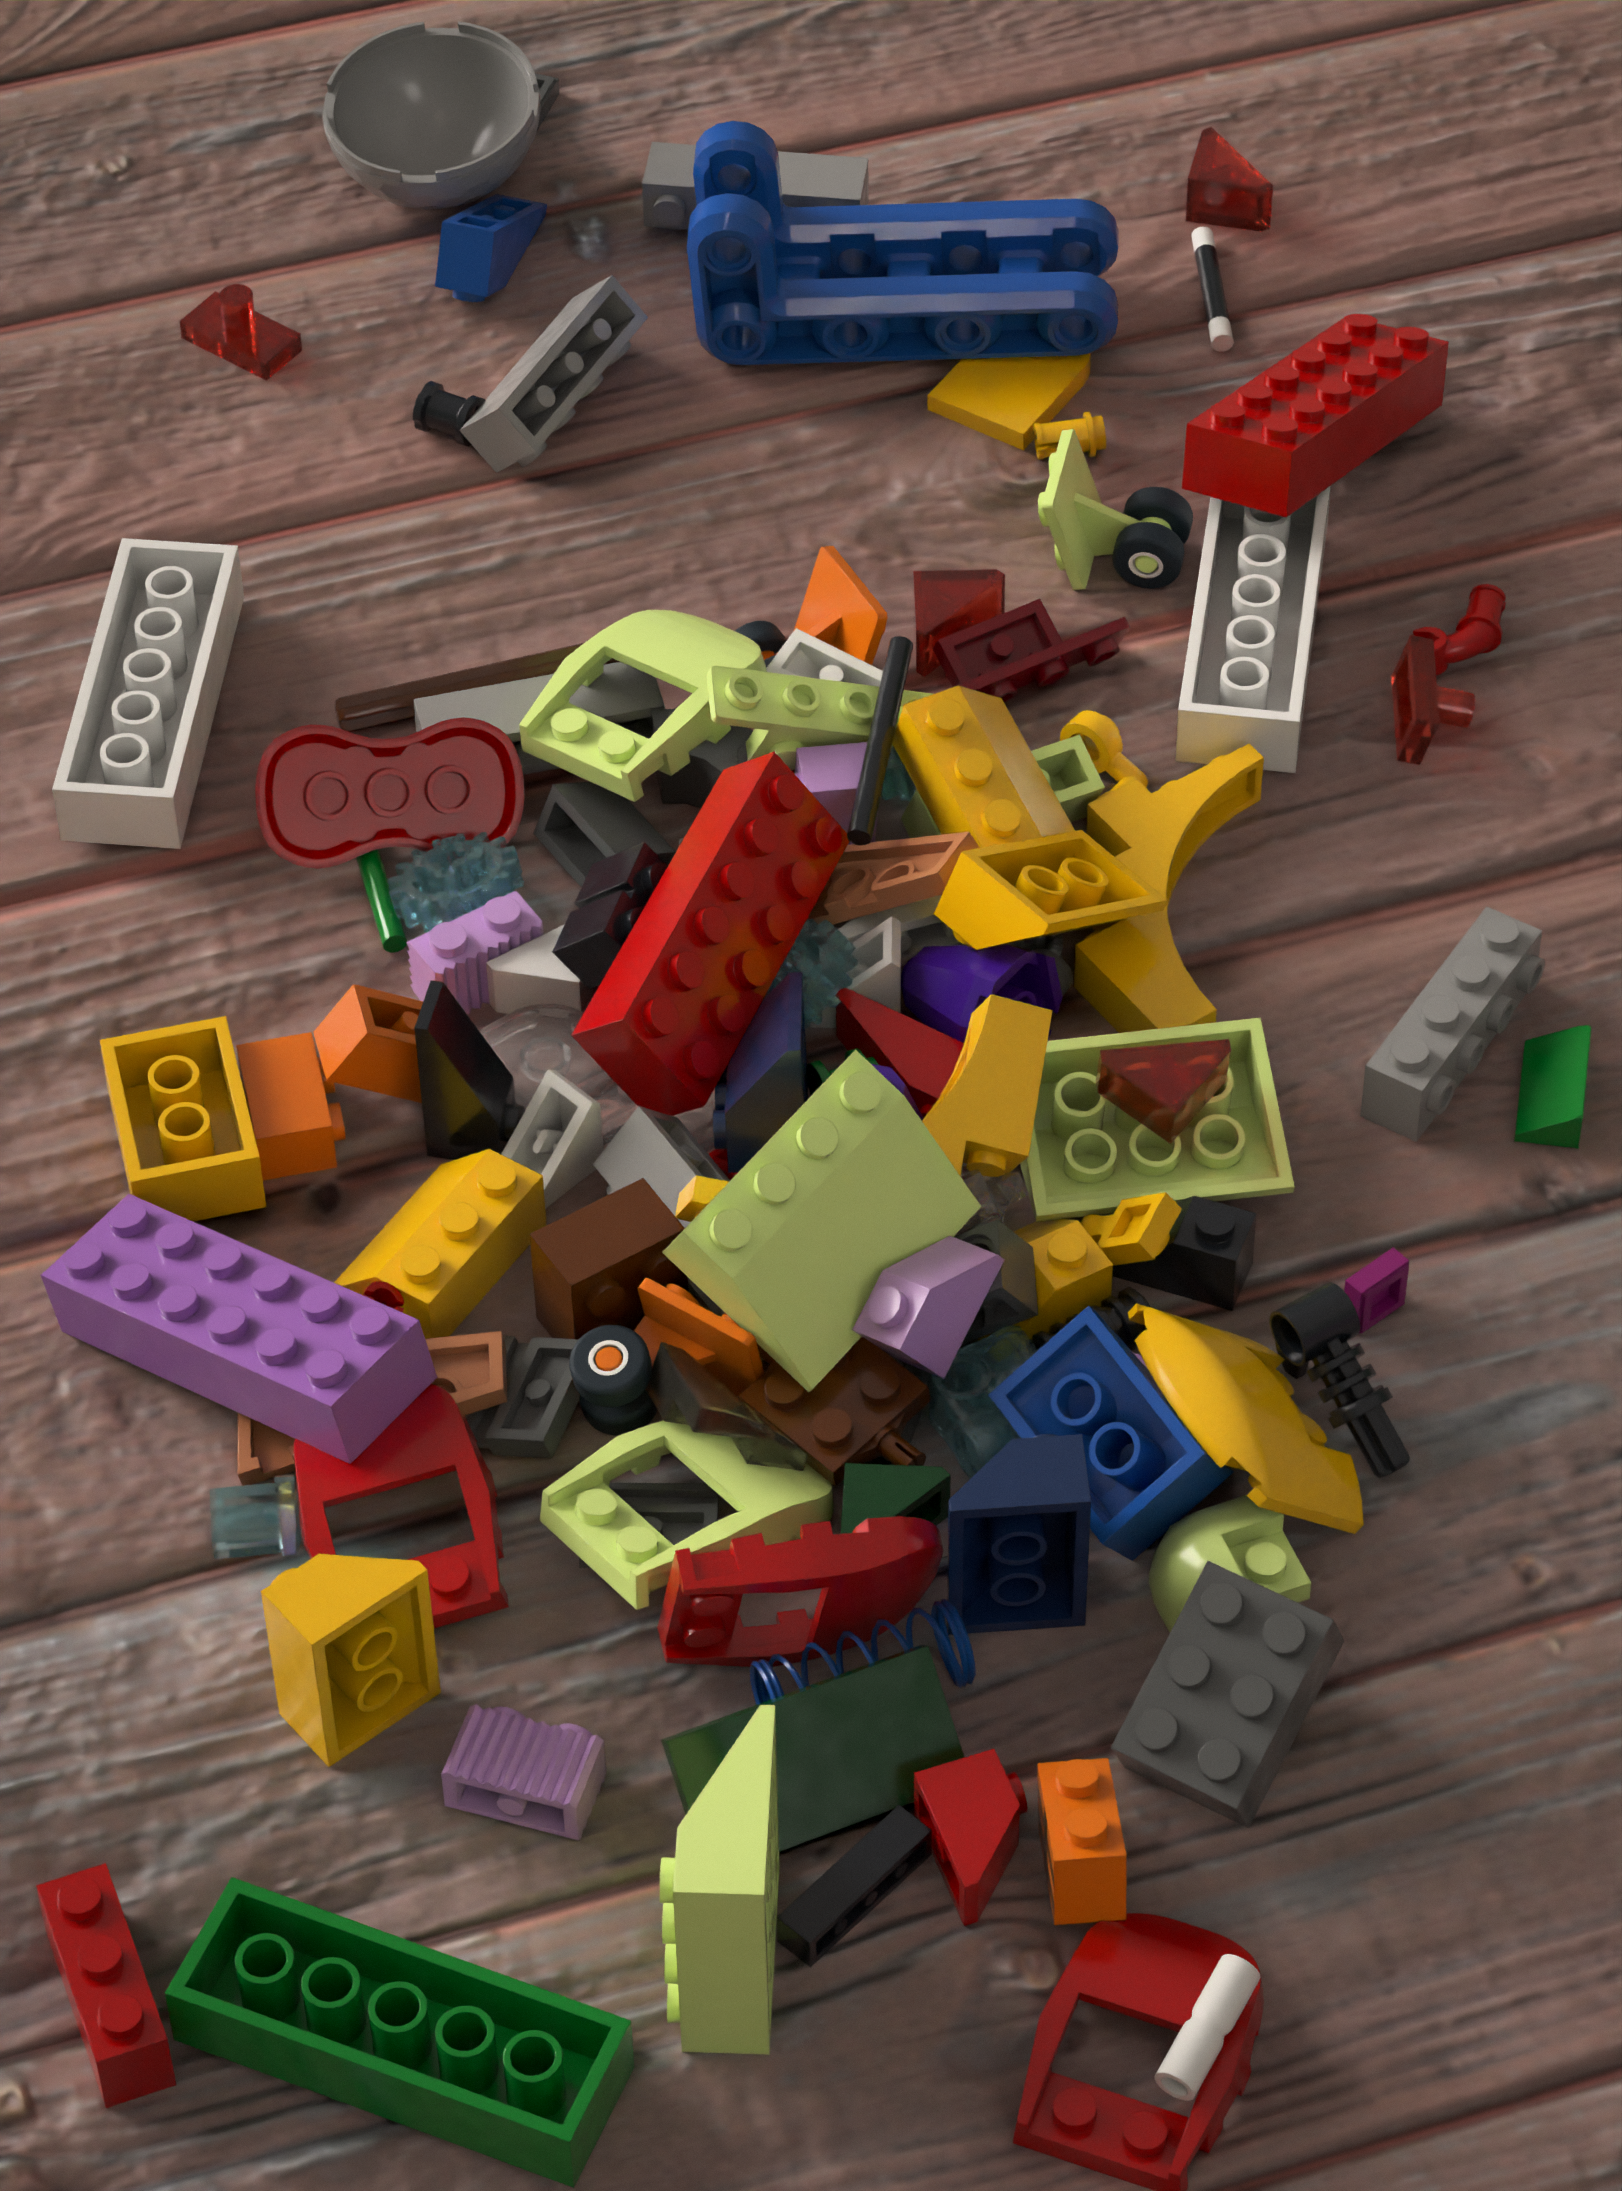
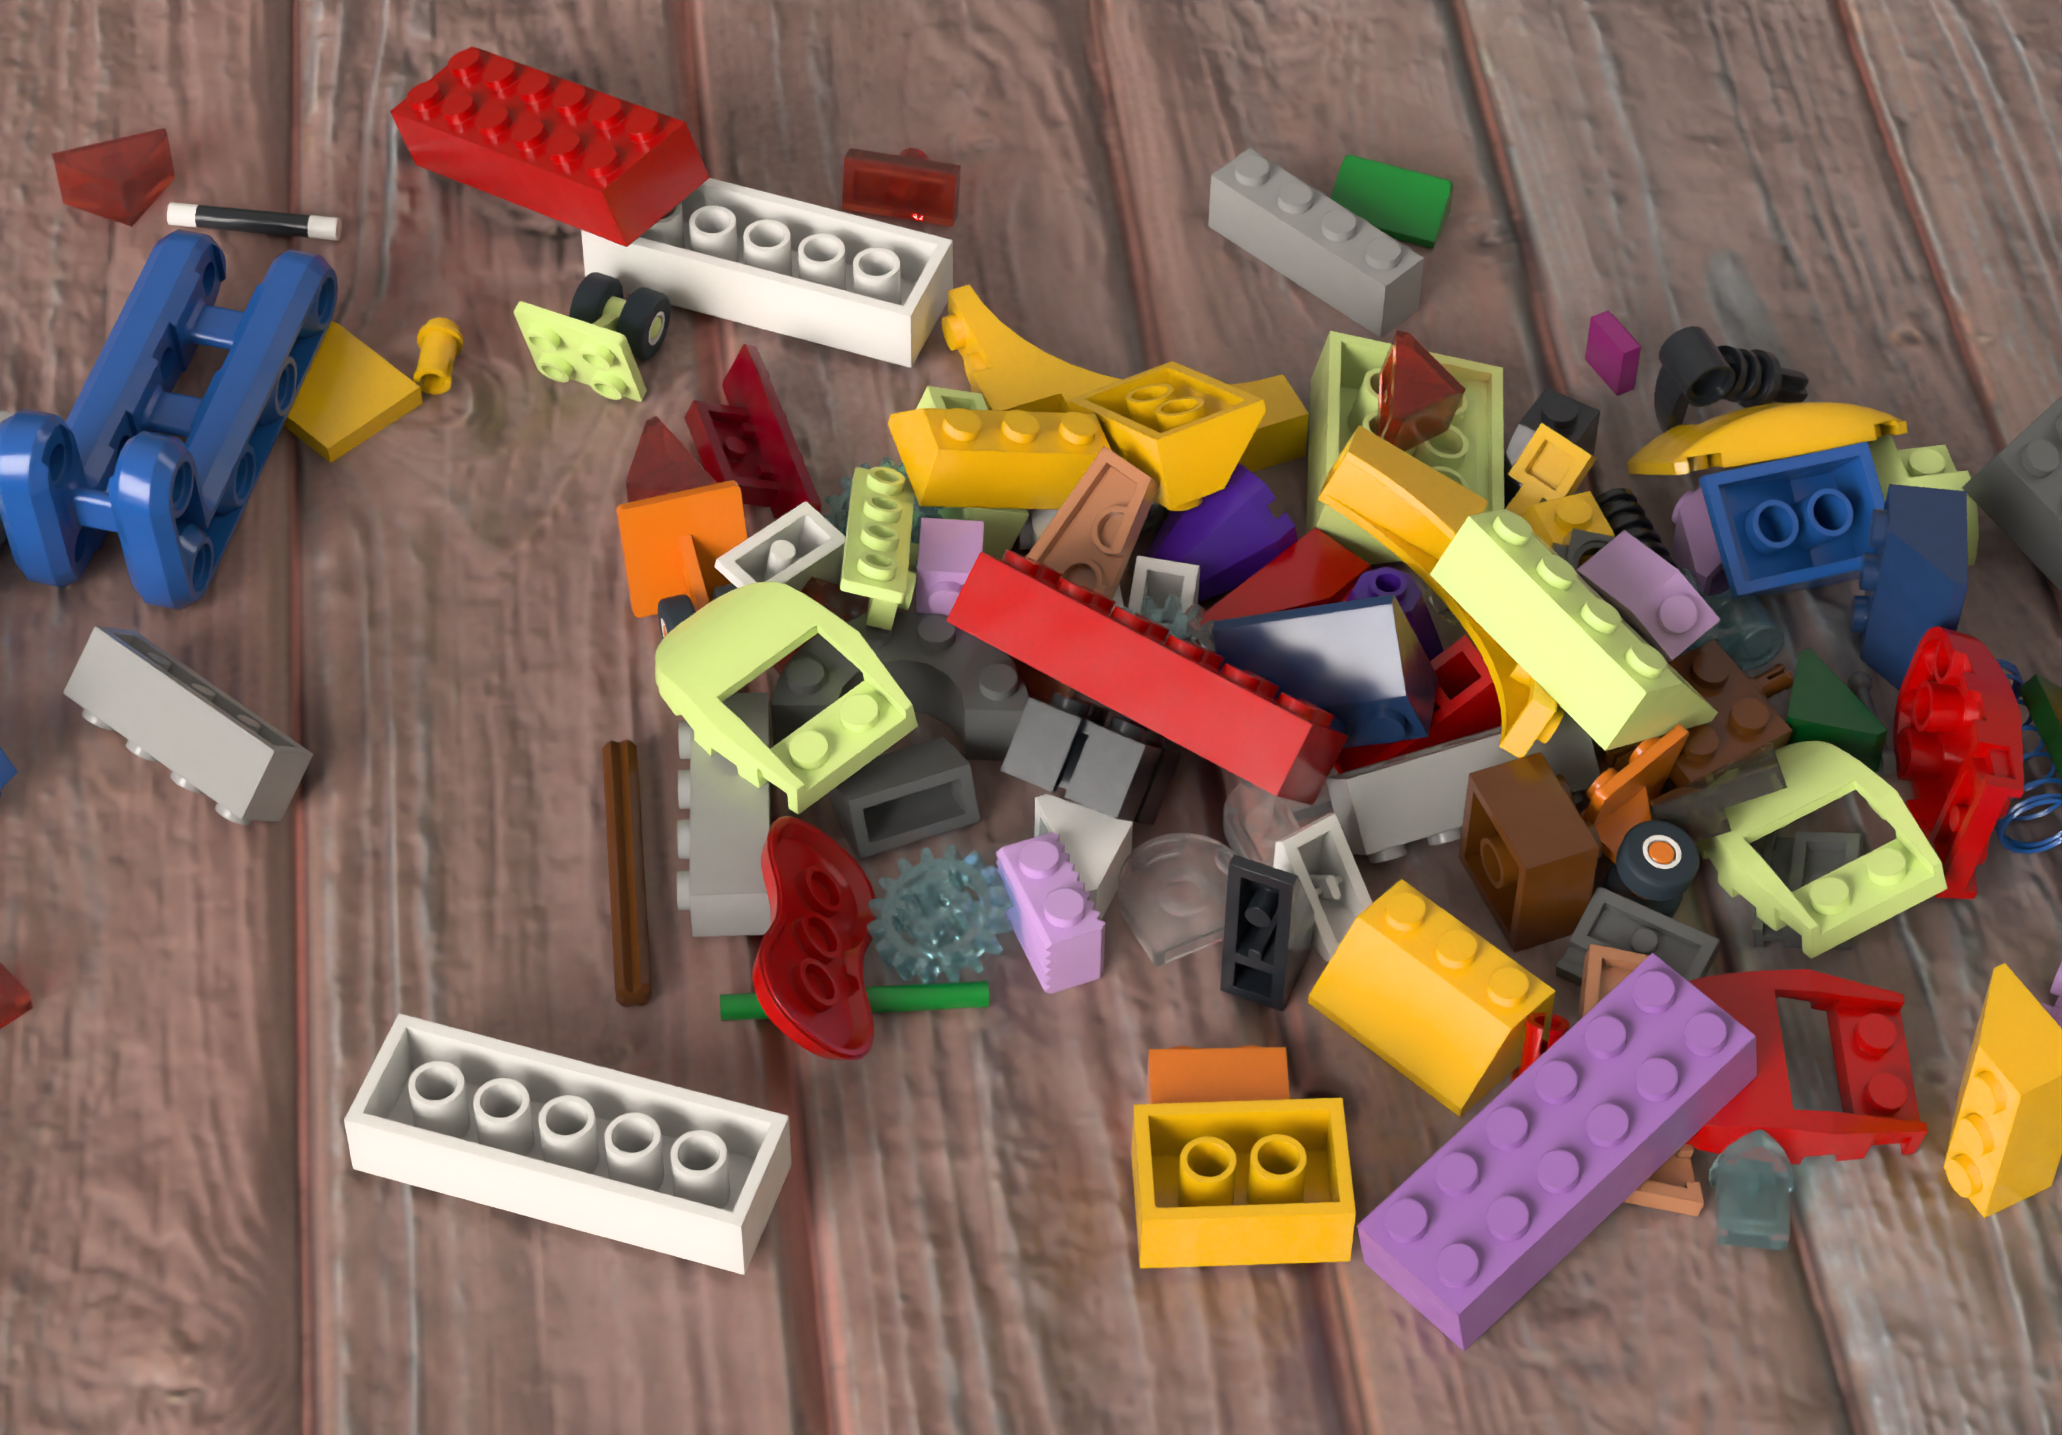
camera: 80 degrees left, 0 degrees up
(372, 1043) = (1192, 981): orange brick -> none
(444, 411) = (193, 833): black bush -> none
(880, 741) = (938, 499): black bar -> none
(1104, 746) = (877, 404): yellow plate -> none
(1475, 632) = (815, 134): red piece -> none

